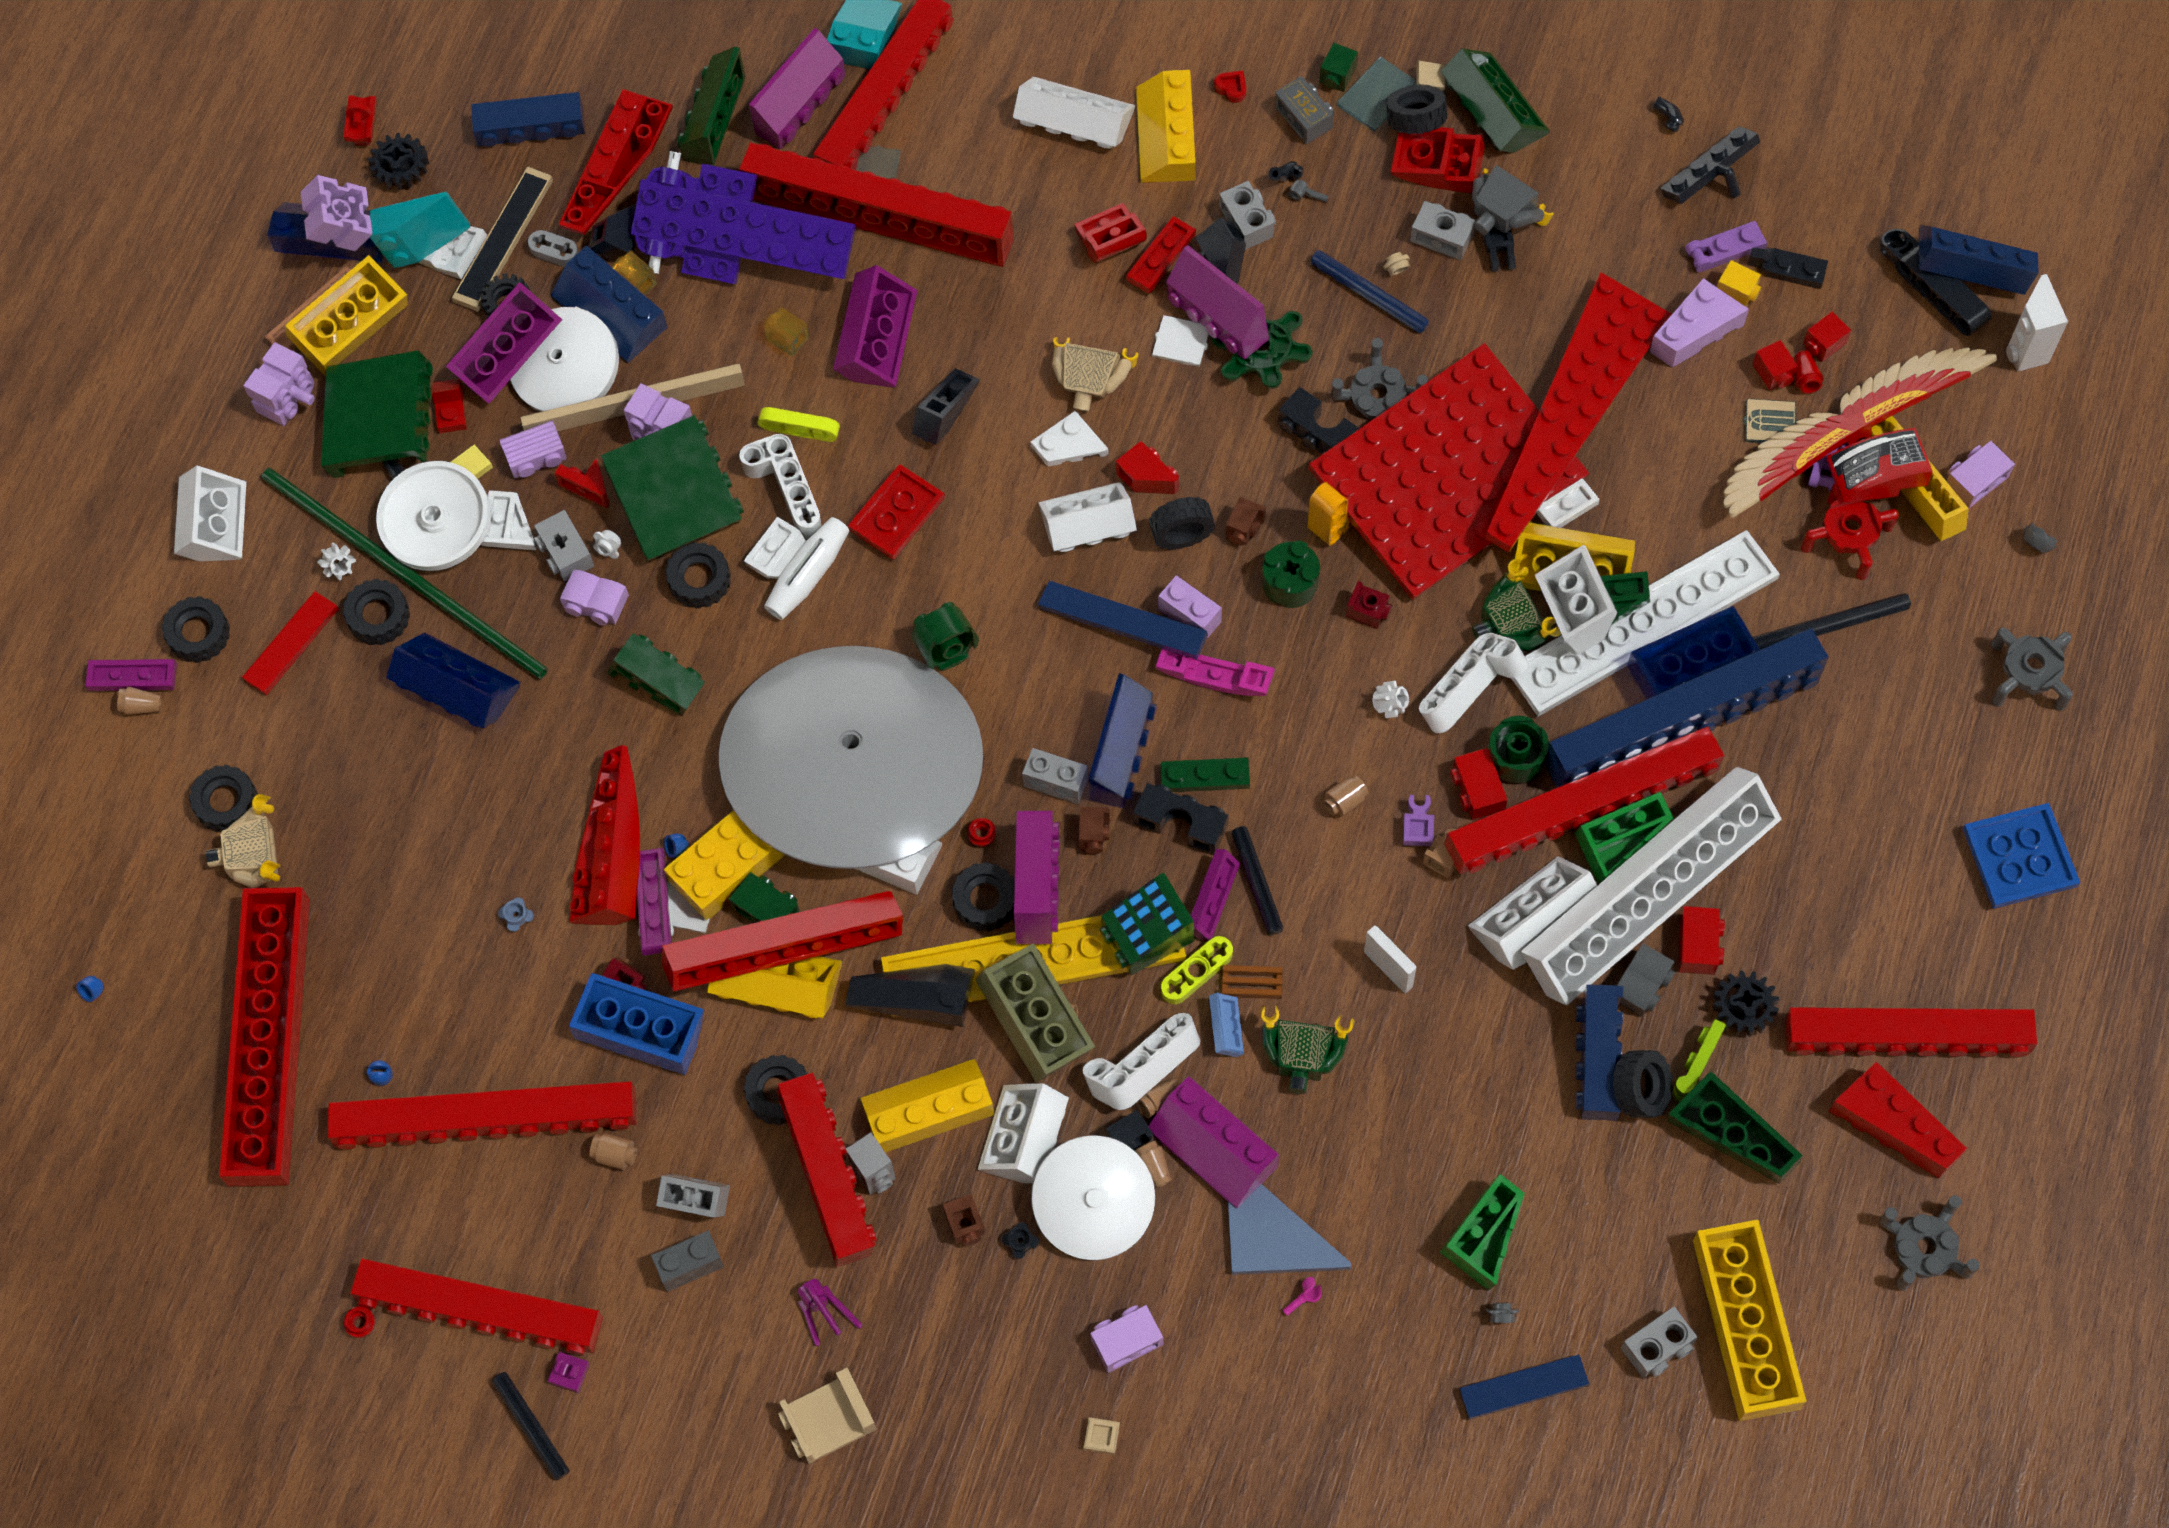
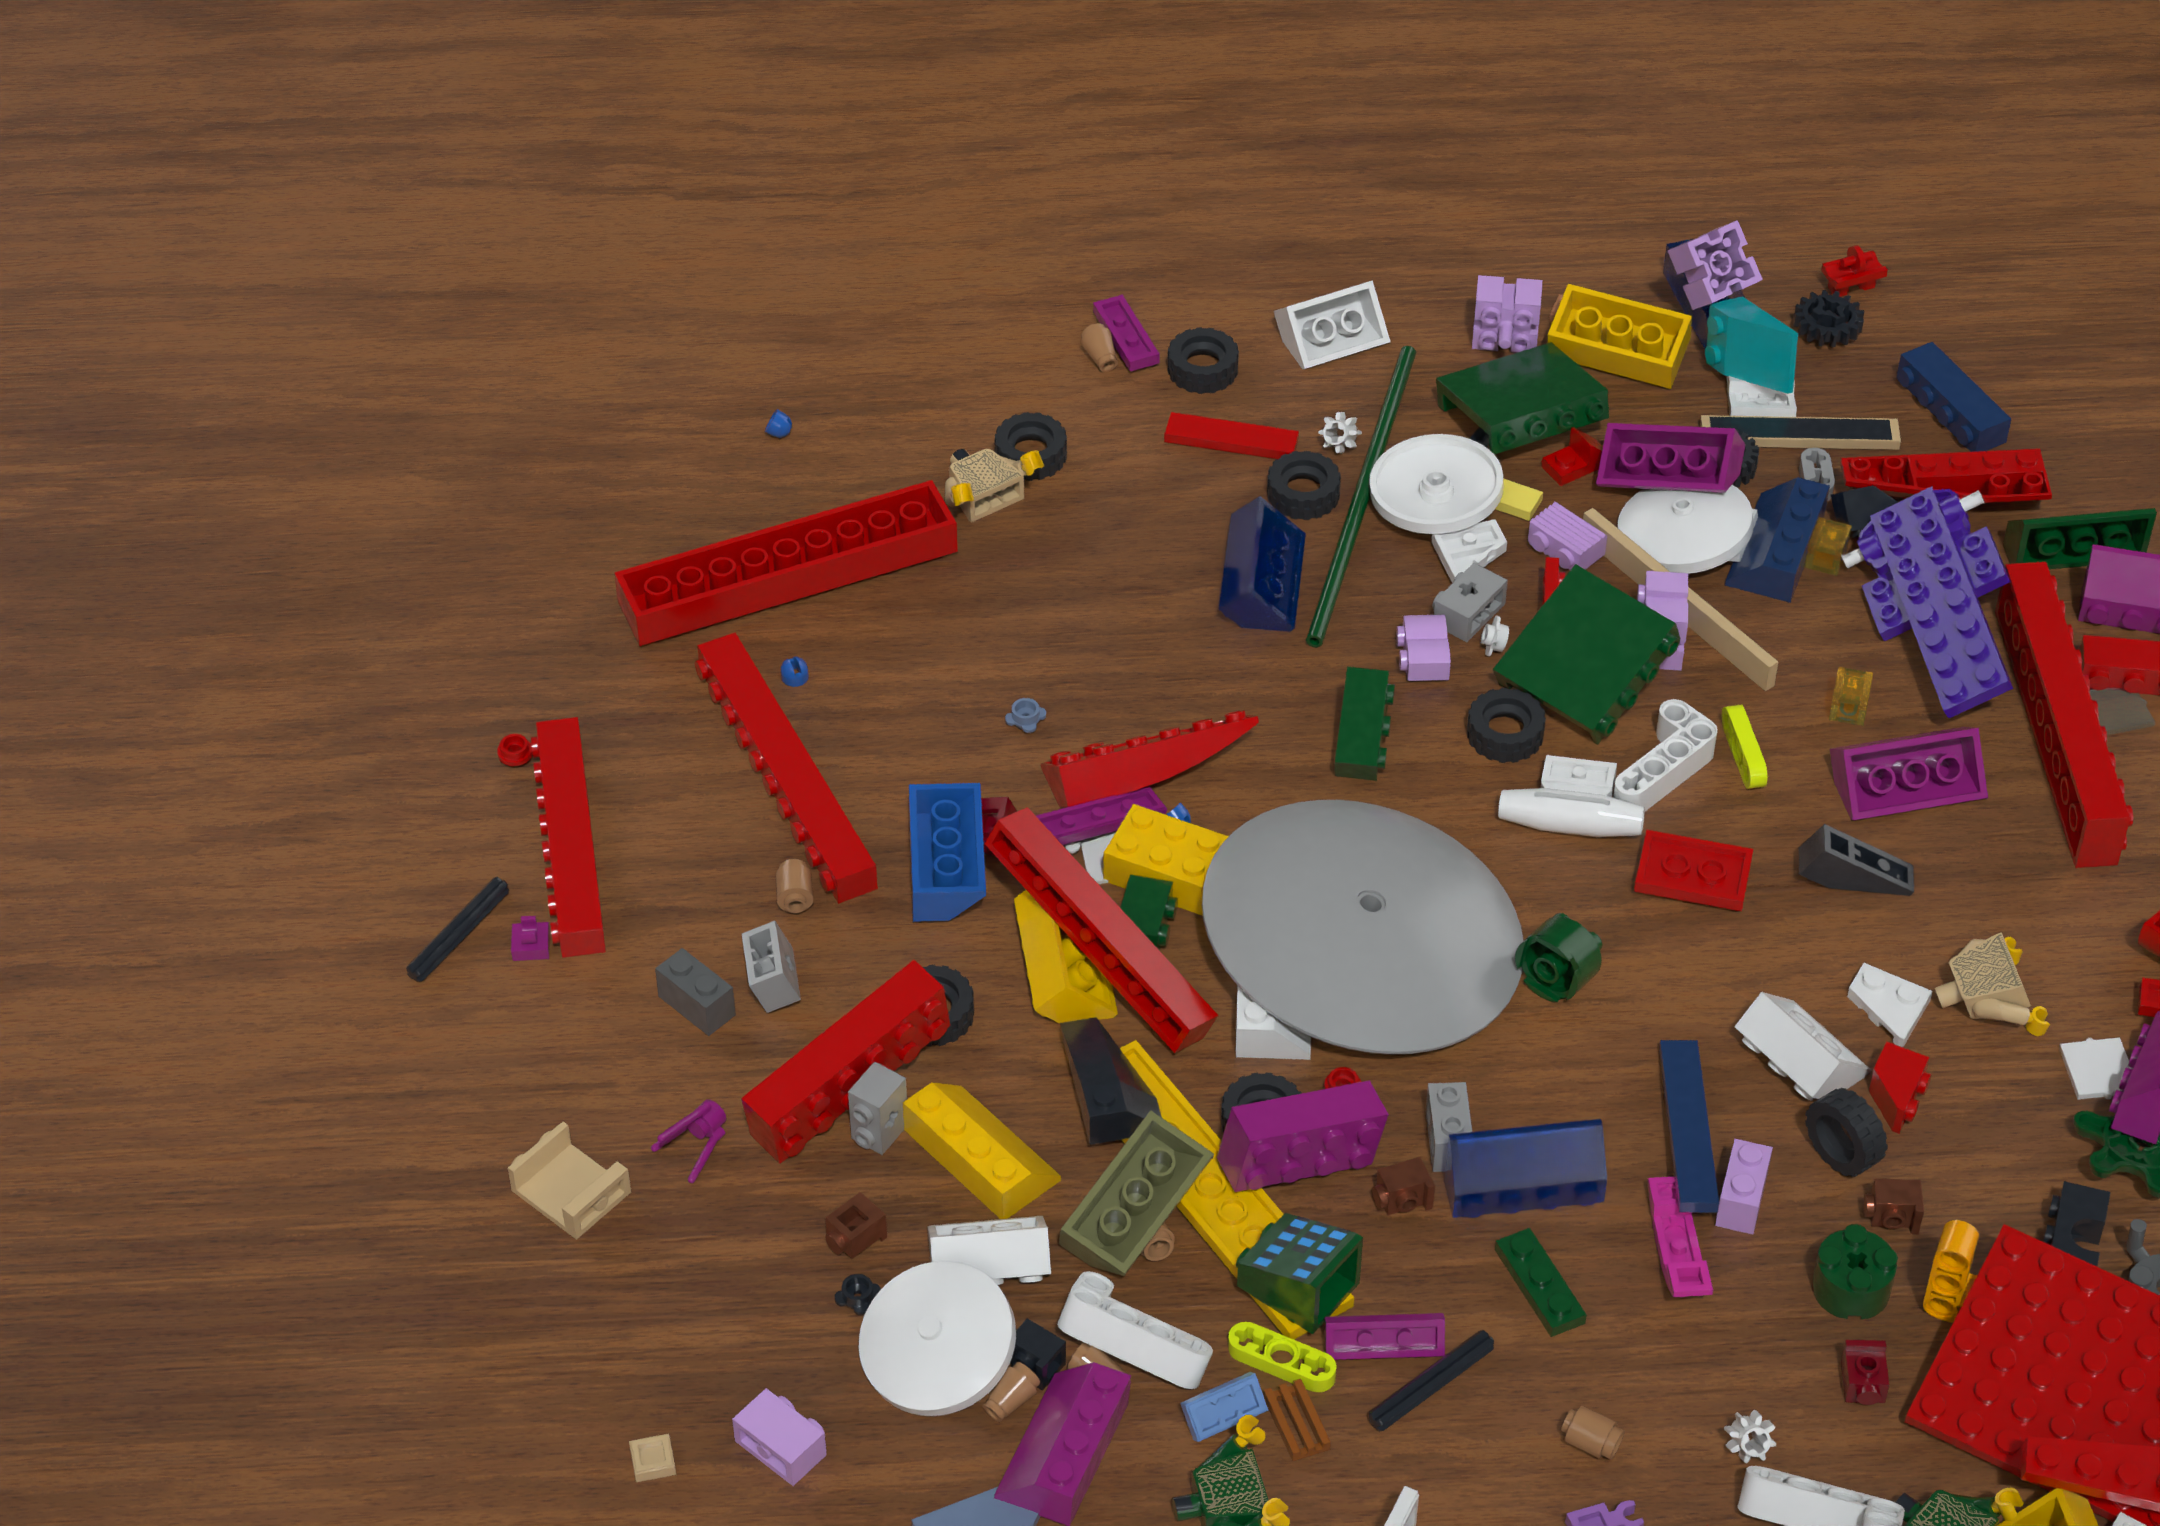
camera: 65 degrees right, 20 degrees down
(1160, 805) = (1467, 1244): black arch -> none

